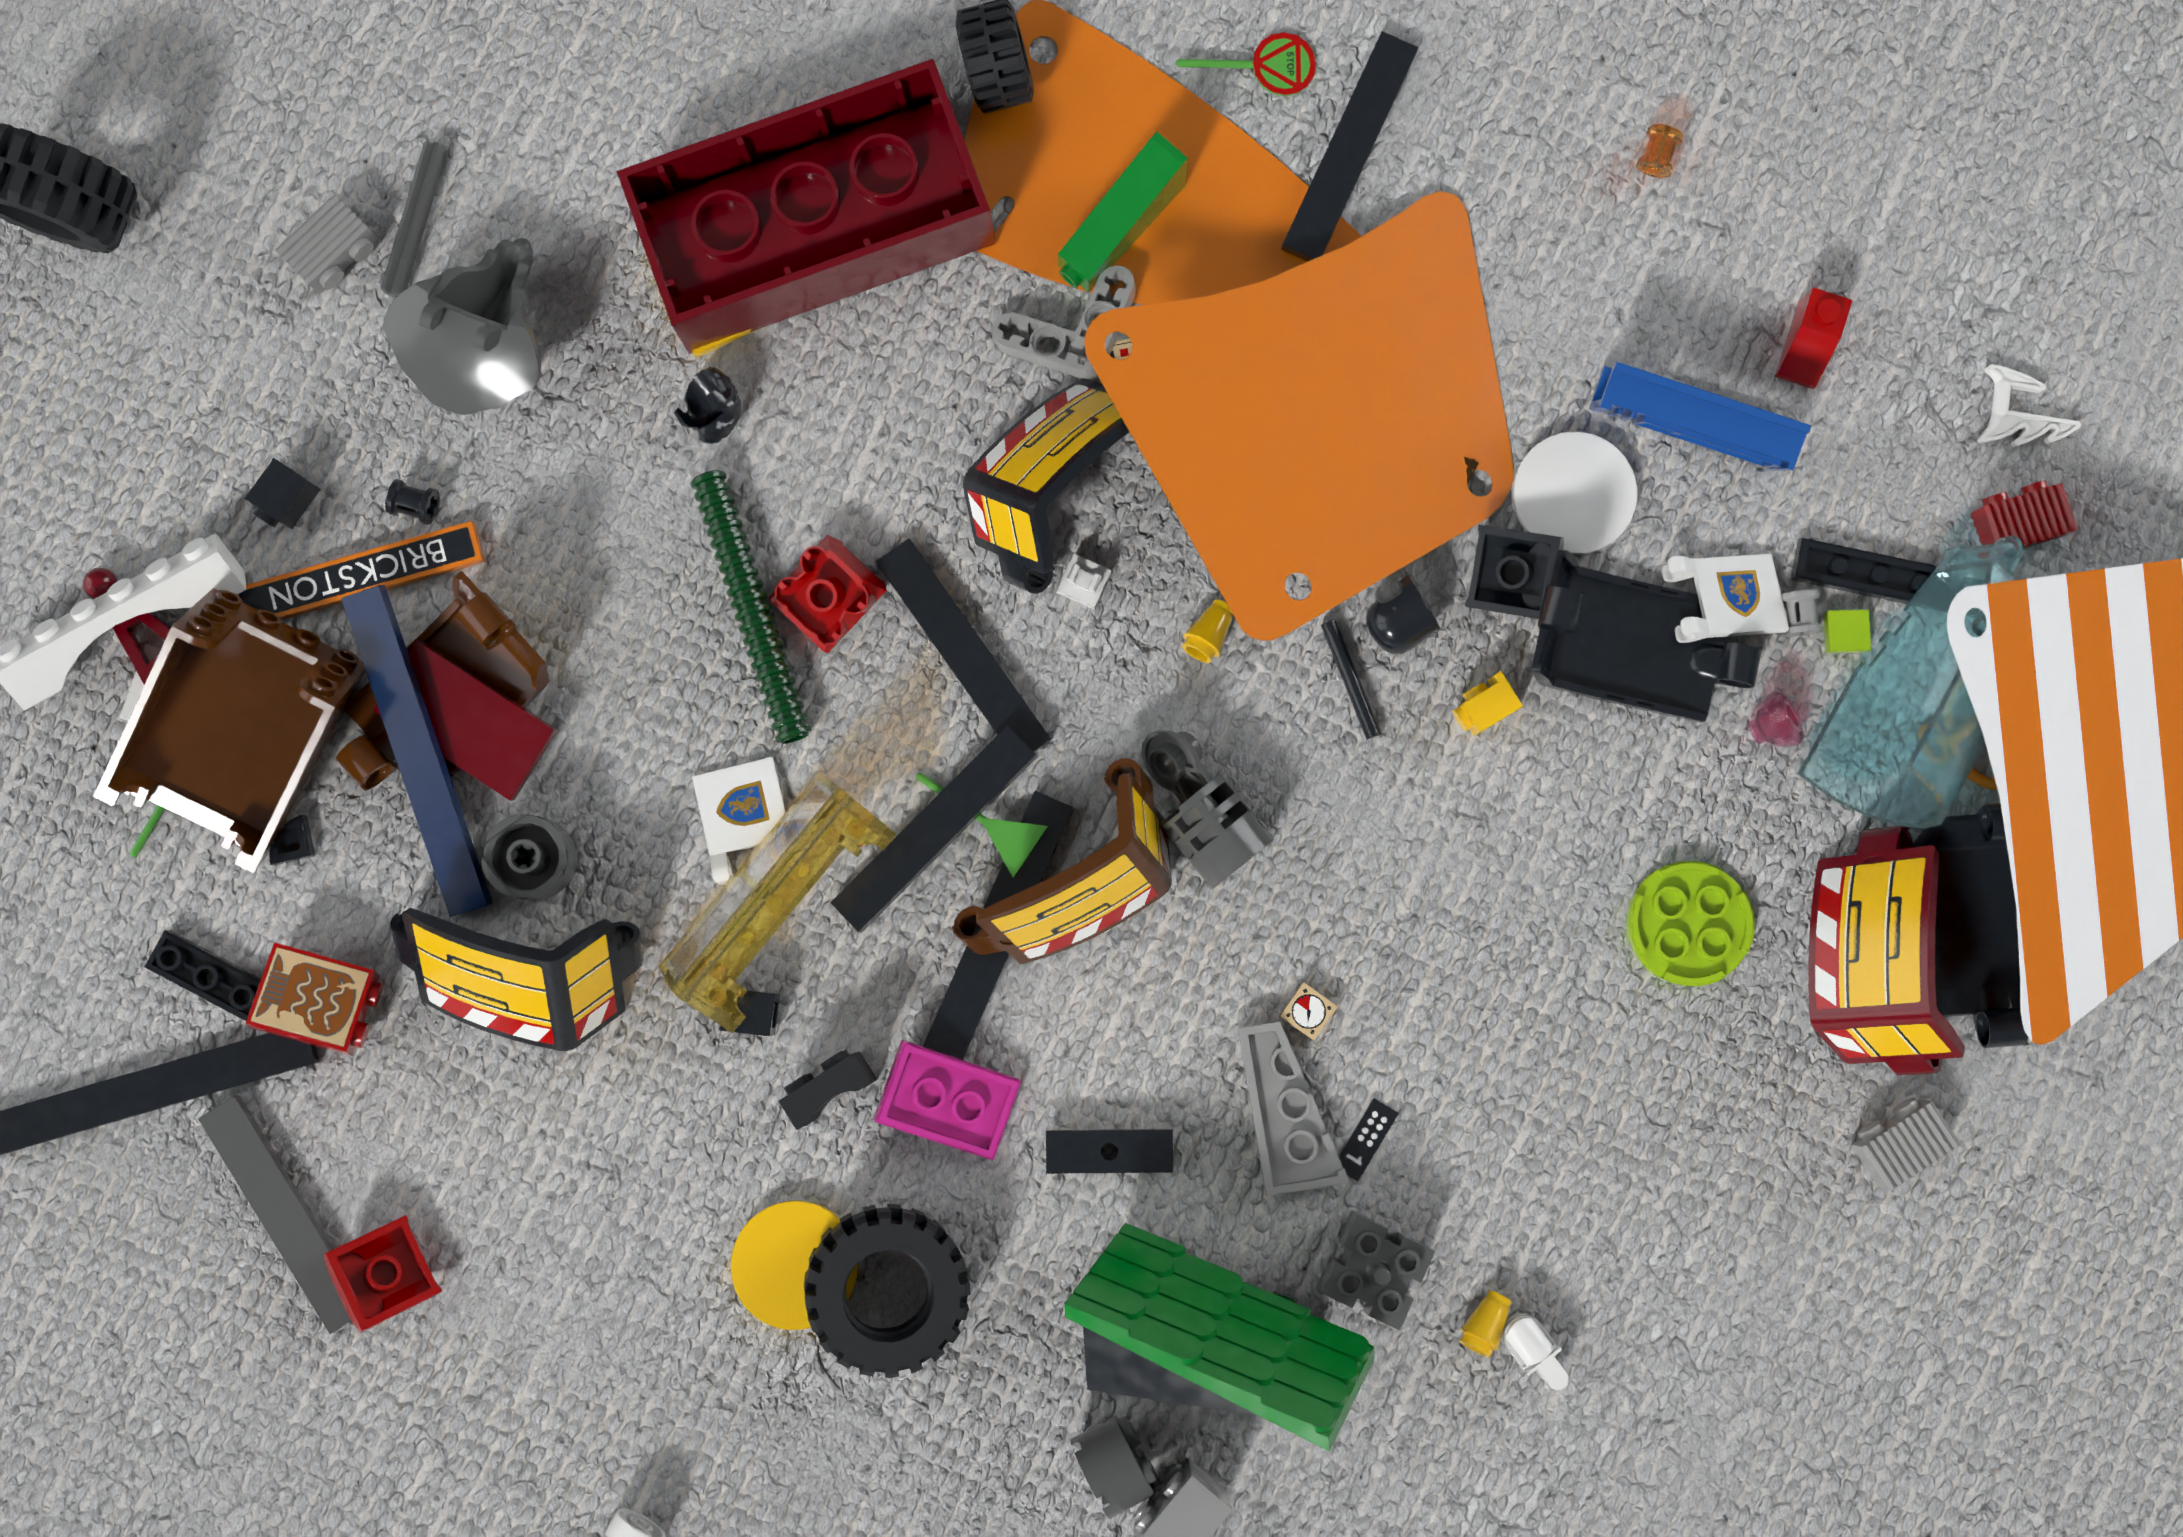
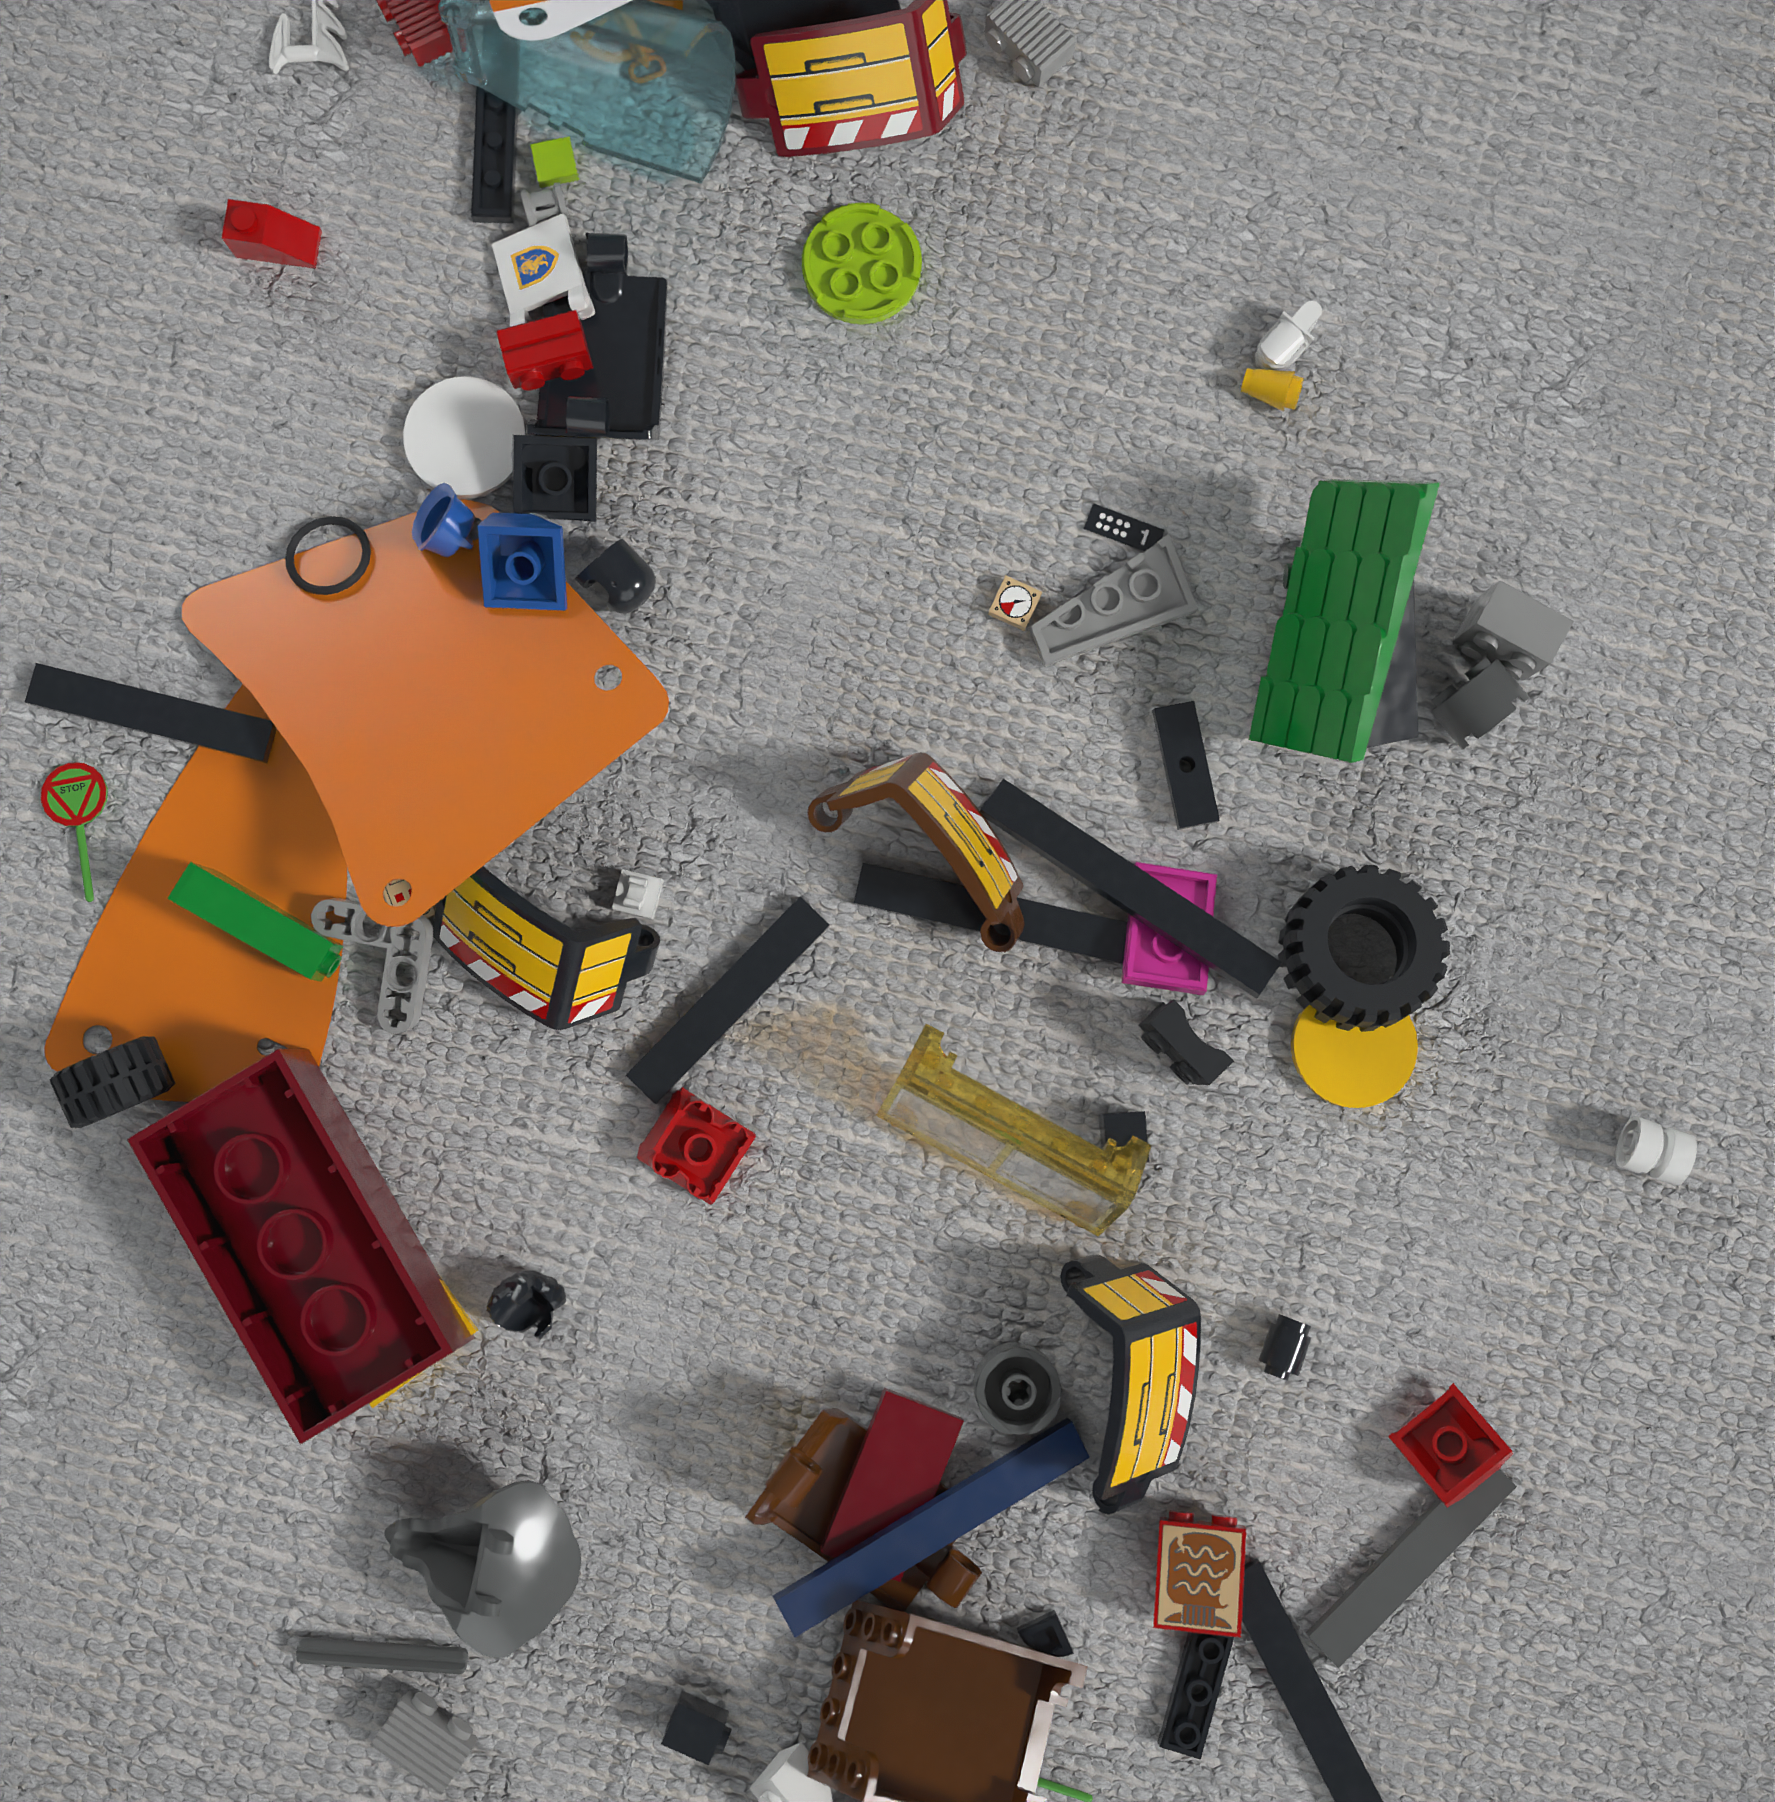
camera: 110 degrees left, 0 degrees up
(386, 565) = (760, 1622): tile -> none
(412, 501) = (679, 1589): black bush -> none
(513, 1131) = (1285, 1347): none -> black brick
(737, 810) = (928, 1191): white flag -> none
(750, 606) = (721, 1220): dark green piece -> none
(934, 829) = (910, 992): black tile -> none
(993, 1067) = (1130, 888): none -> black tile
(1012, 839) = (905, 915): bright green piece -> none
(1208, 633) = (666, 762): yellow cone -> none
(1213, 822) = (850, 724): dark grey cylinder -> none
(1351, 679) = (687, 619): black bar -> none
(1375, 1270) = (1245, 496): dark grey brick -> none
(1431, 523) = (522, 562): none -> blue slope
(1440, 340) = (326, 590): none -> black tyre
(1486, 455) = (443, 523): none -> blue piece
(1487, 705) = (689, 483): yellow brick -> none
(1645, 585) = (545, 350): none -> red brick
(1659, 151) = (105, 410): clear orange bush -> none
(1699, 417) = (370, 325): blue piece -> none
(1776, 722) = (655, 211): clear pink brick -> none

